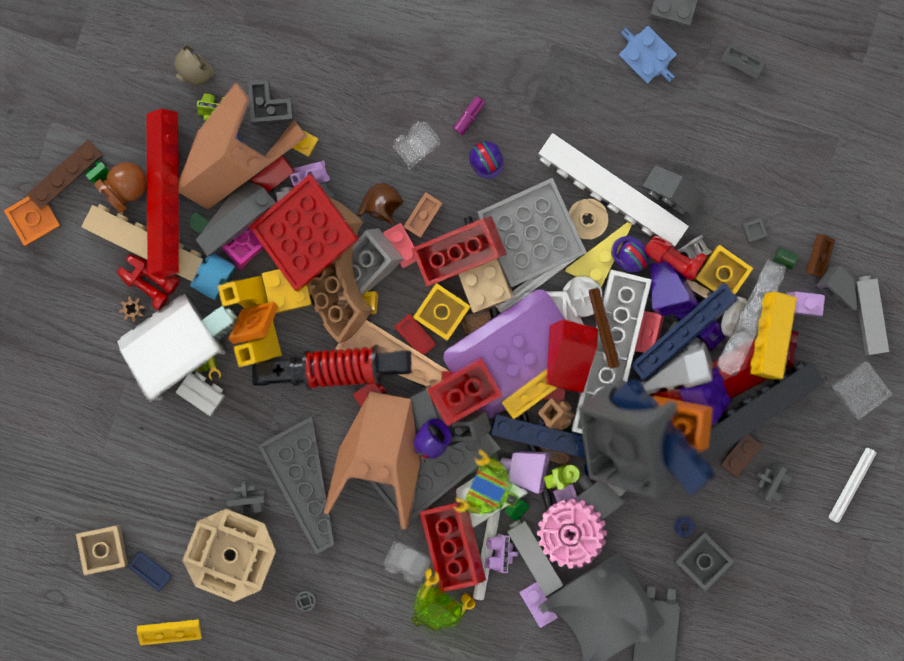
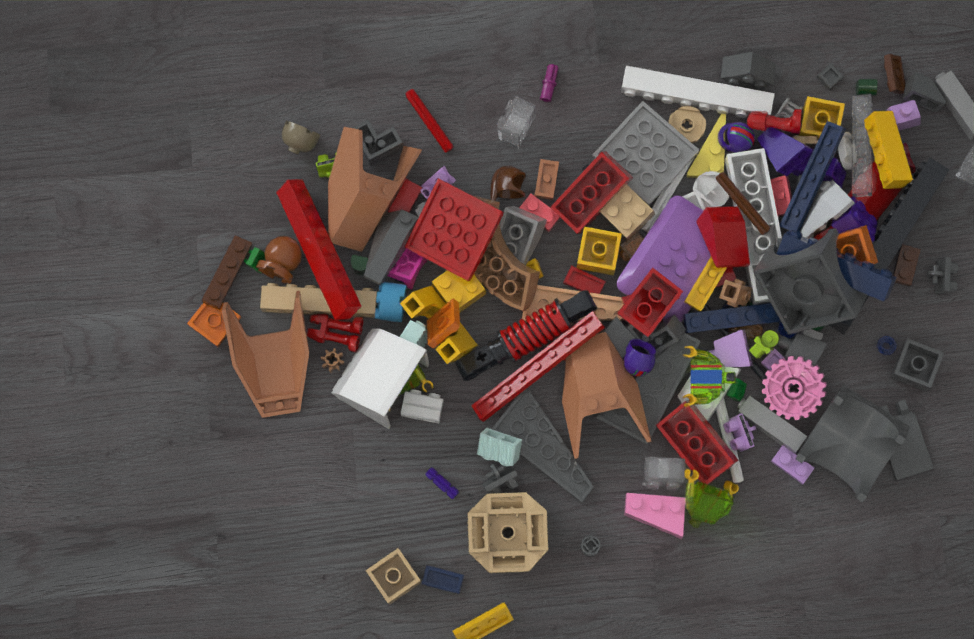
camera: 15 degrees left, 10 degrees down
(67, 285) = (270, 363): none -> nougat windscreen
(188, 476) = (442, 483): none -> dark purple axle
(258, 467) = (499, 447): none -> light aqua brick
(306, 145) = (422, 163): yellow plate -> none
(329, 404) = (538, 366): none -> plate
(331, 103) = (429, 121): none -> red axle
(385, 595) = (658, 511): none -> bright pink wedge
(486, 159) = (580, 110): dark purple helmet -> none

